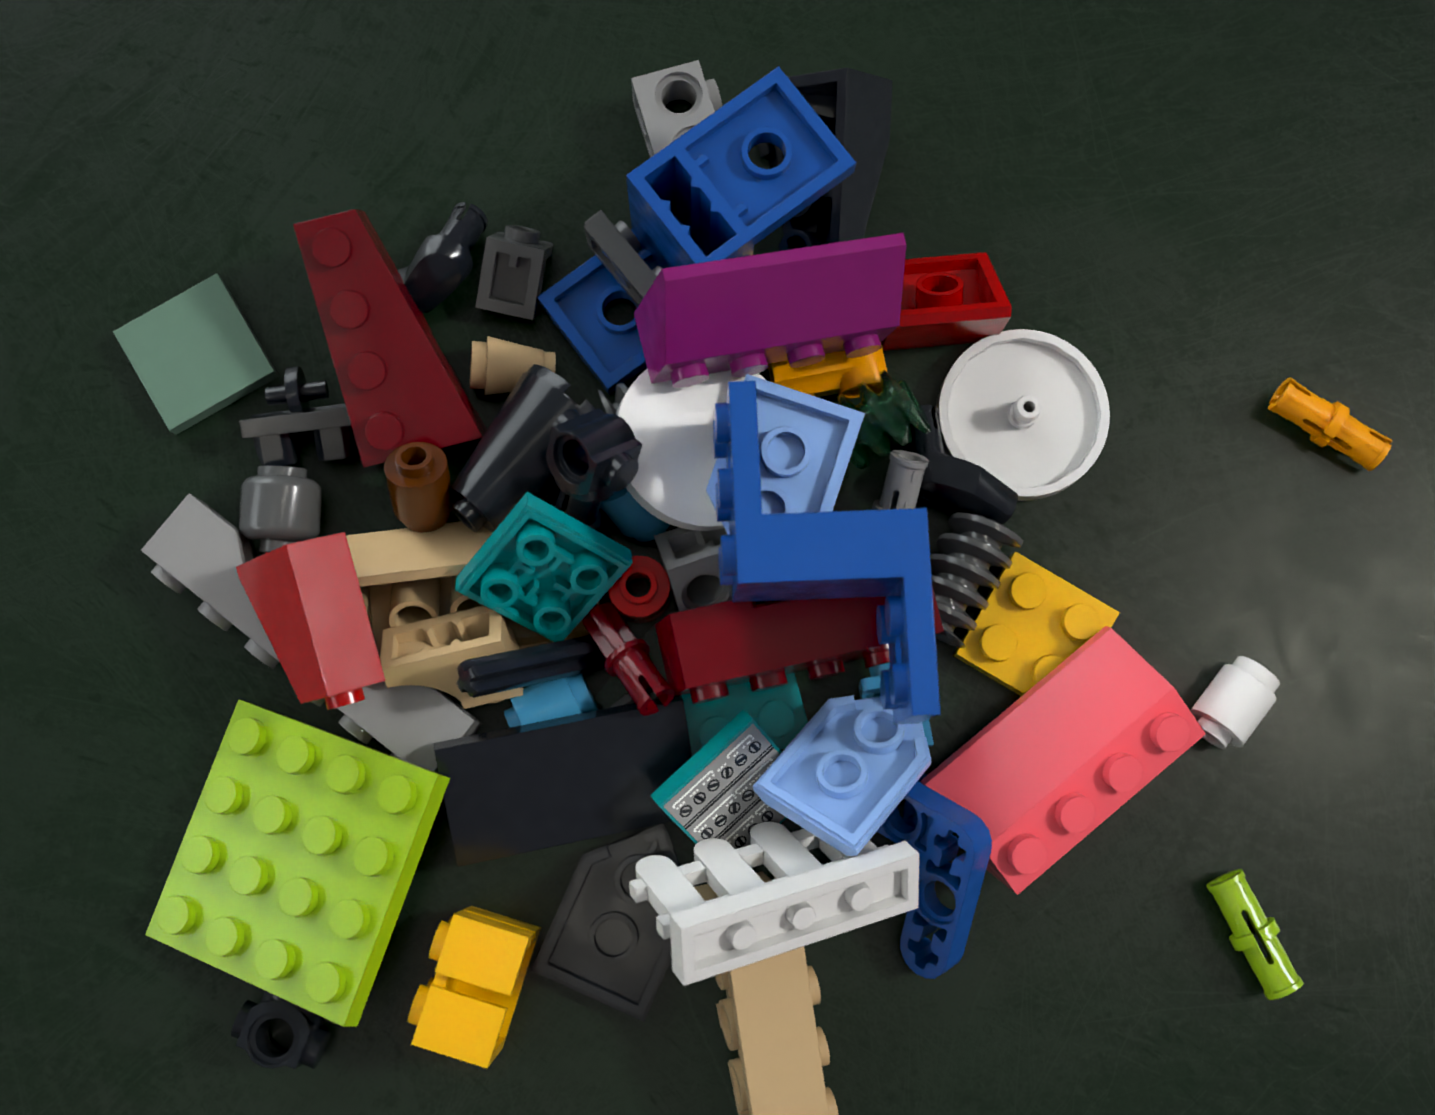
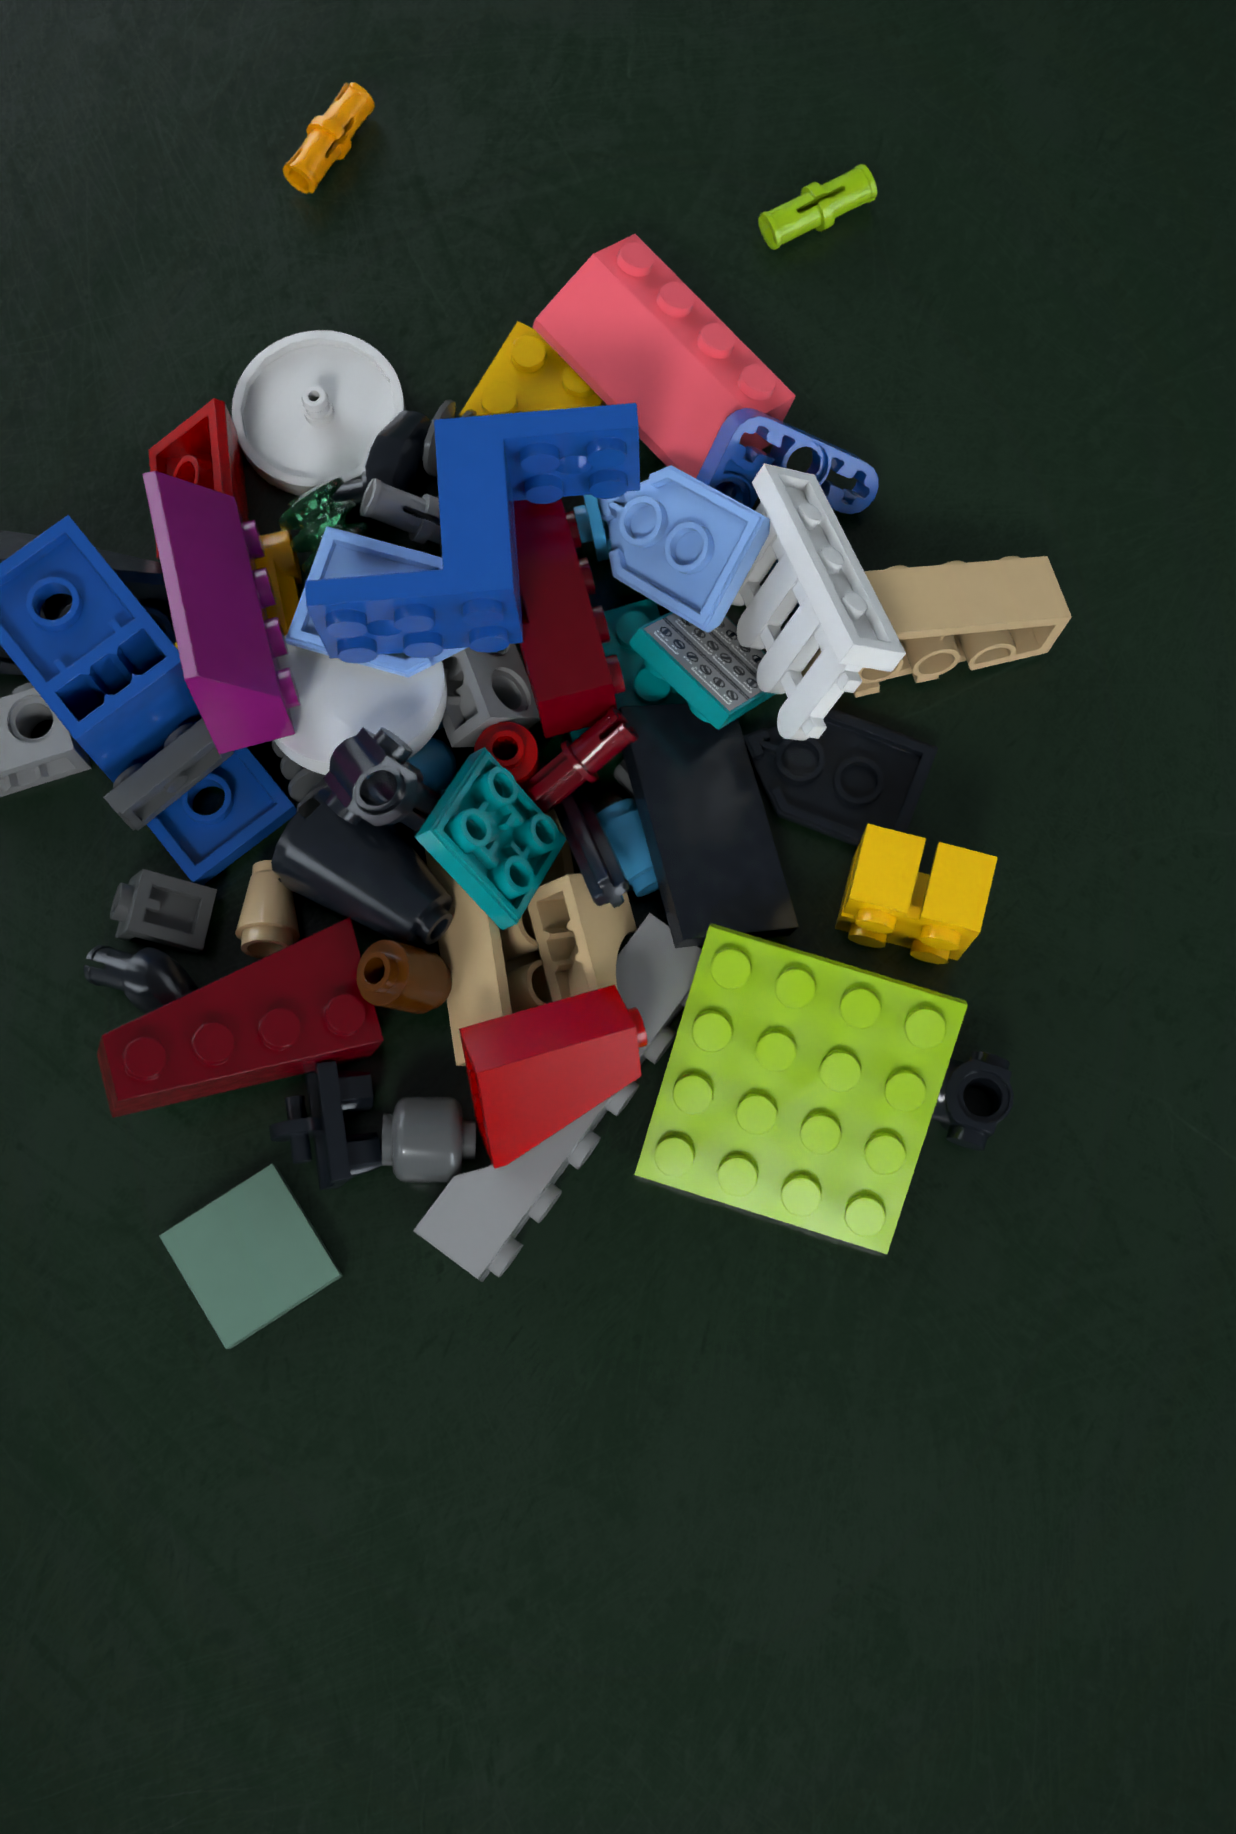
camera: 85 degrees left, 5 degrees down
(1235, 702) = (599, 215): white brick -> none

